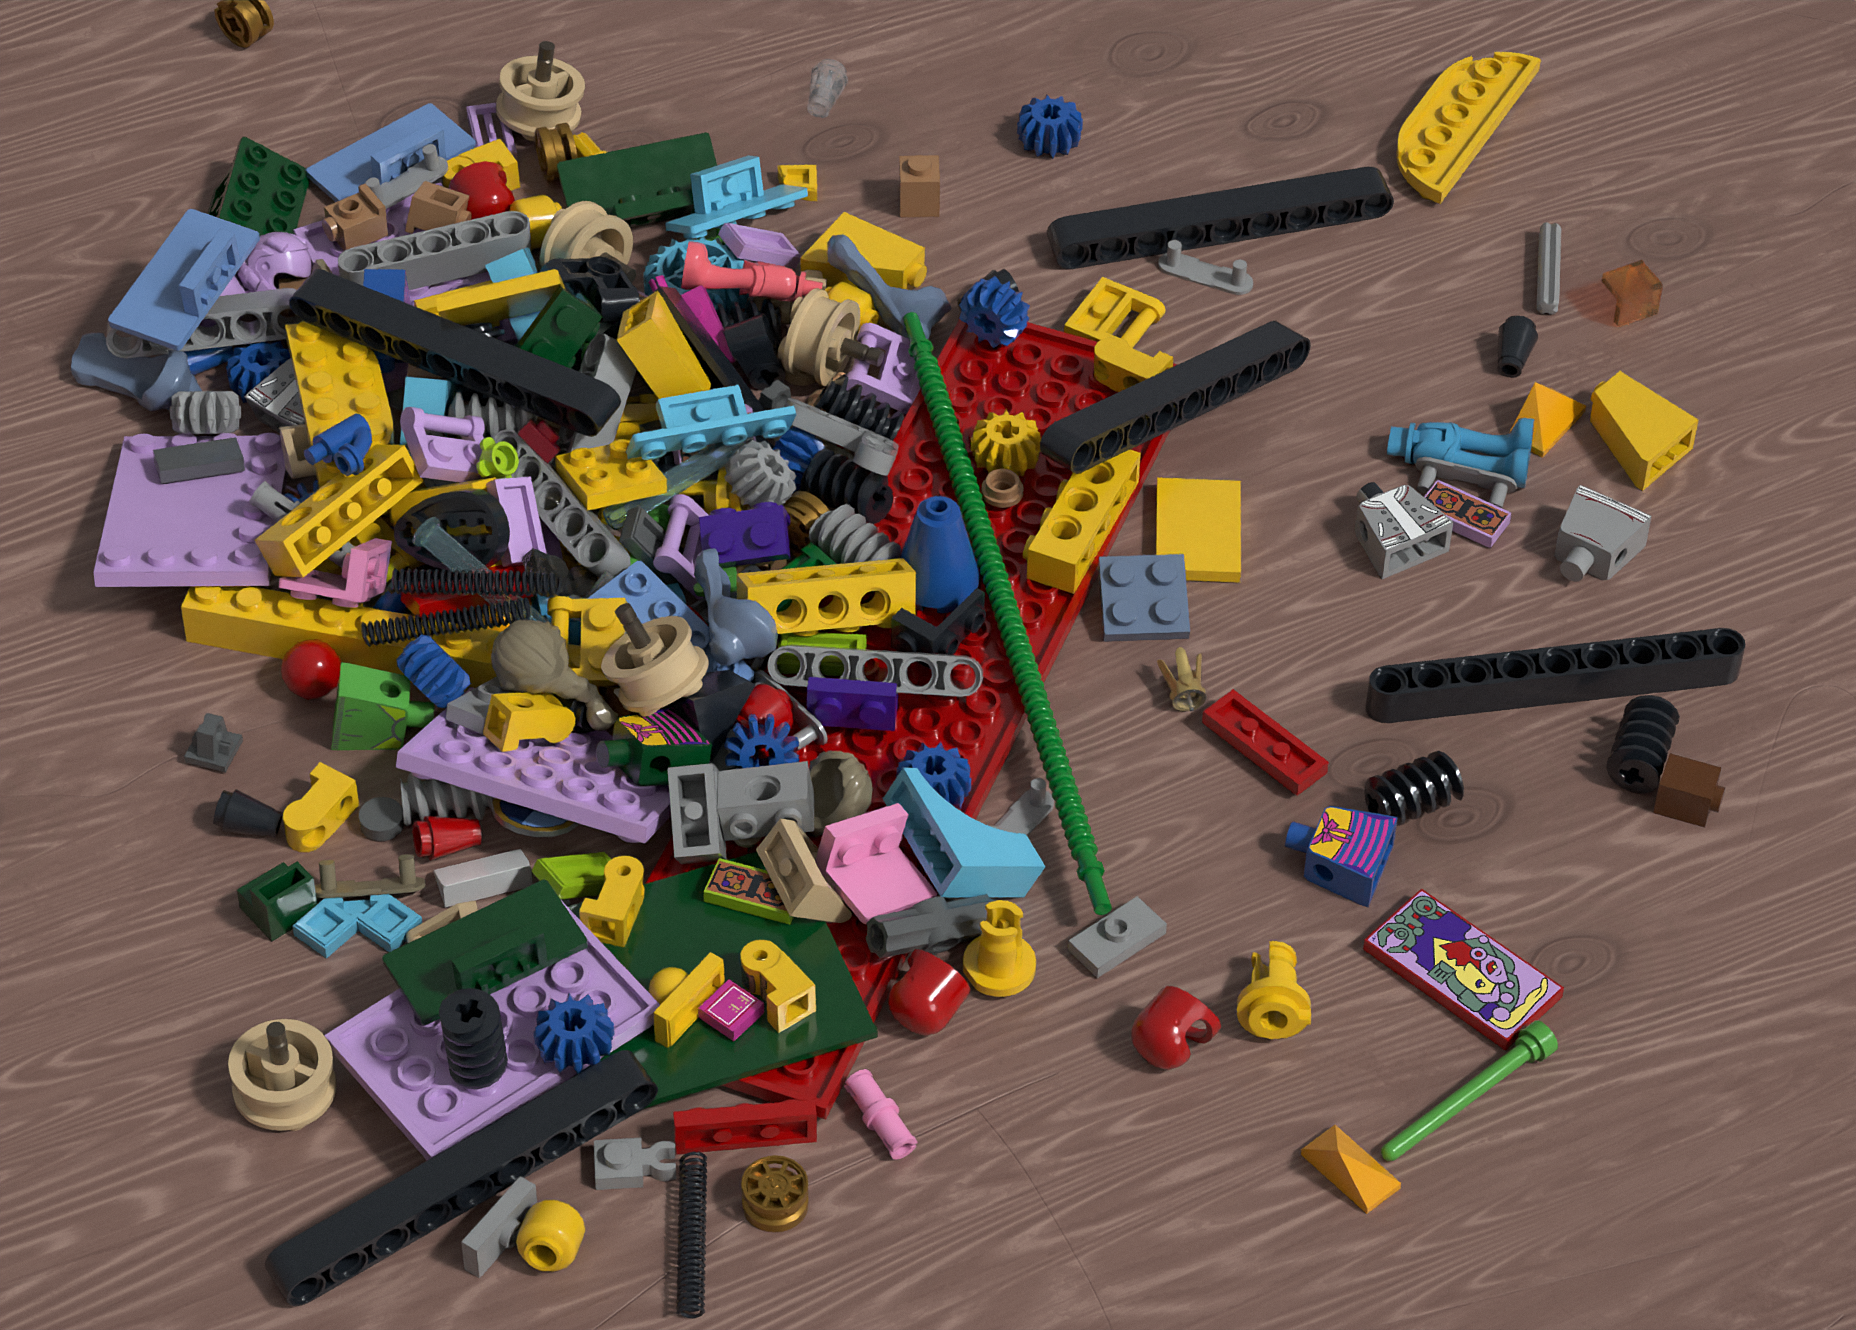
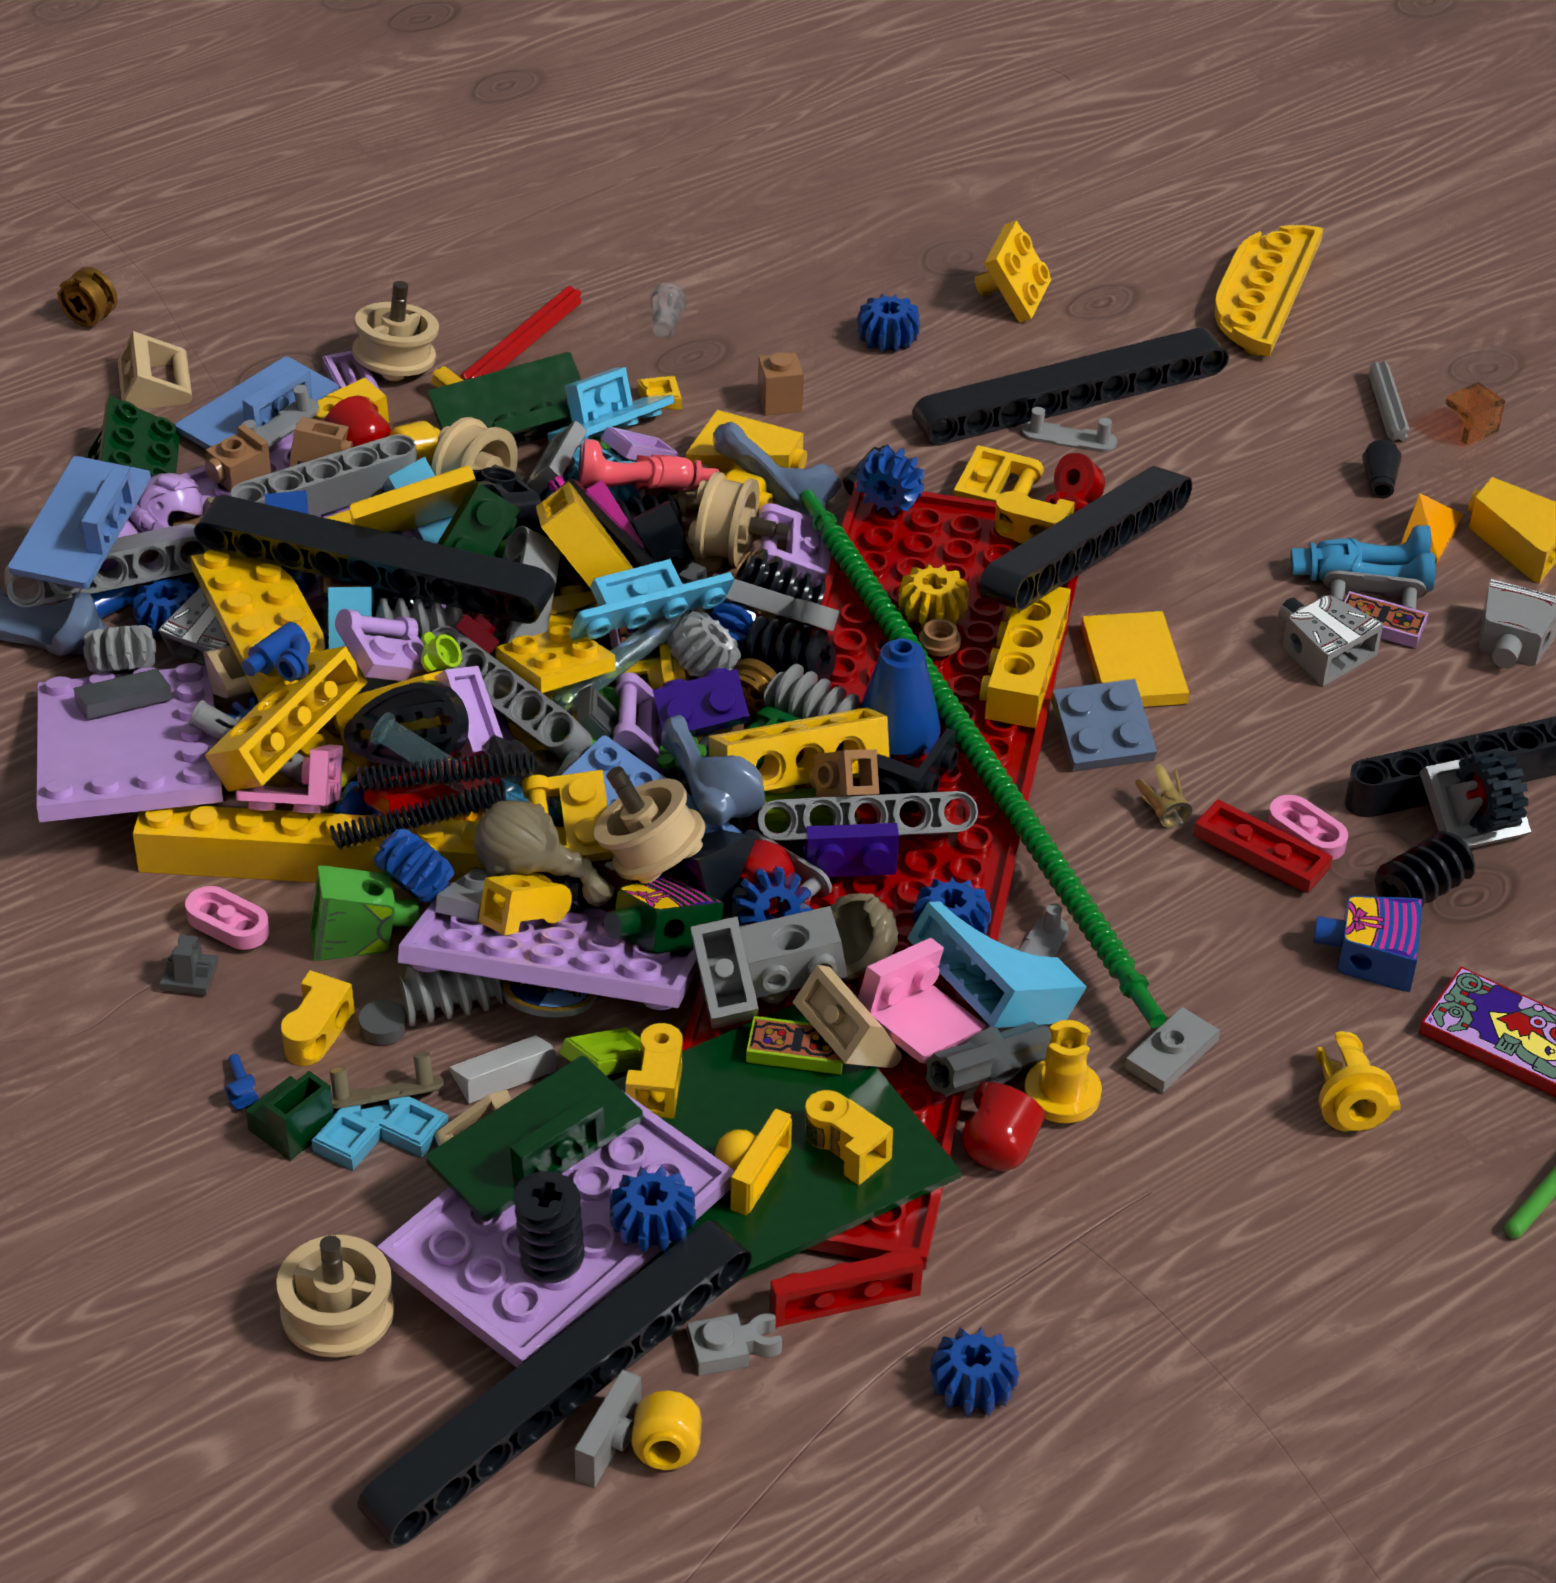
camera: 10 degrees left, 5 degrees down
(239, 870) = (241, 1091): none -> blue hand
(246, 815) = (239, 1034): black cone -> none
(265, 701) = (227, 917): none -> bright pink plate
(278, 126) = (135, 375): none -> tan tile
(311, 669) = (280, 881): red piece -> none
(444, 835) = (454, 1030): red cone -> none
(554, 147) = (417, 380): pearl gold wheel -> none
(667, 253) = (557, 457): none -> light grey plate
(673, 103) = (525, 334): none -> red axle
(693, 1235) = (824, 1432): black piece -> none
(731, 1010) = (805, 1167): dark pink tile -> none
(774, 1196) = (893, 1356): pearl gold wheel -> none
(841, 1219) = (974, 1371): none -> blue gear
(849, 626) = (833, 773): none -> medium nougat brick
(880, 1114) = (984, 1257): bright pink pin -> none
(1165, 1024) = (1255, 1133): red helmet -> none
(1190, 332) = (1077, 481): none -> red piece
(1194, 82) = (1015, 272): none -> yellow plate
(1320, 731) = (1309, 824): none -> bright pink plate
(1350, 1169) = (1479, 1251): light orange slope -> none
(1487, 721) = (1478, 797): none -> plate

